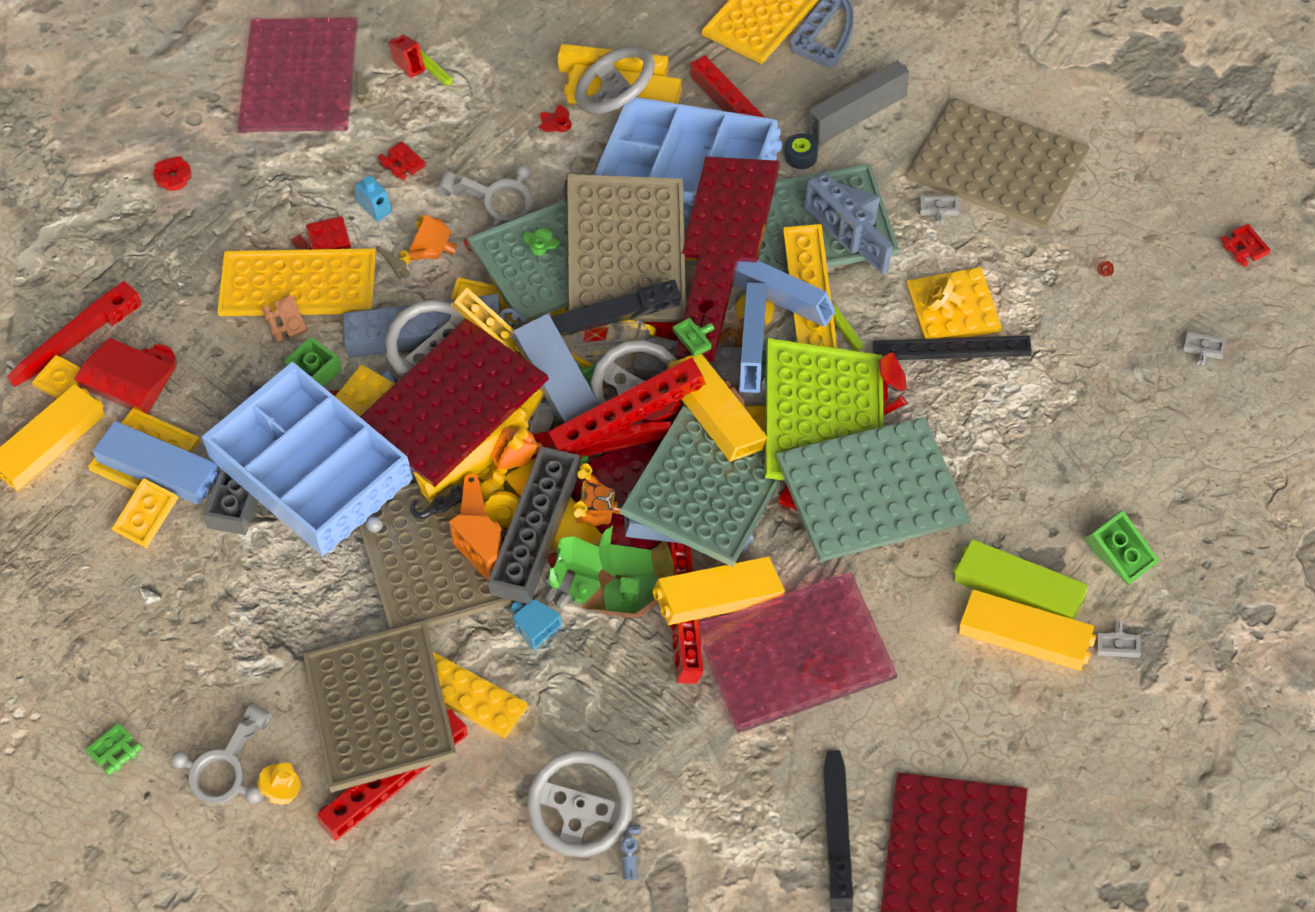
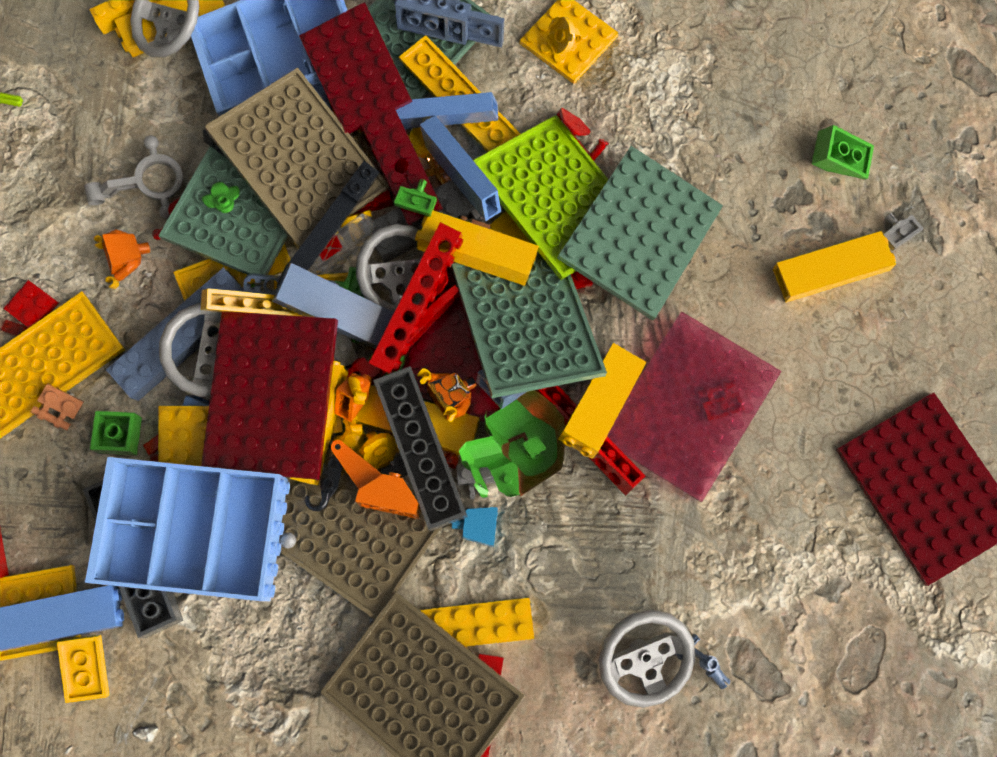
camera: 40 degrees left, 20 degrees up
(368, 194) = (38, 247): dark azure torso -> none
(396, 264) = (112, 293): dark tan piece -> none
(405, 157) = (38, 192): red plate -> none
(556, 121) = (135, 80): red plate -> none
(837, 833) = (864, 558): black piece -> none
(846, 329) = (513, 112): lime axle -> none
(955, 347) = (597, 73): black plate -> none
(1018, 580) = (798, 231): lime brick -> none

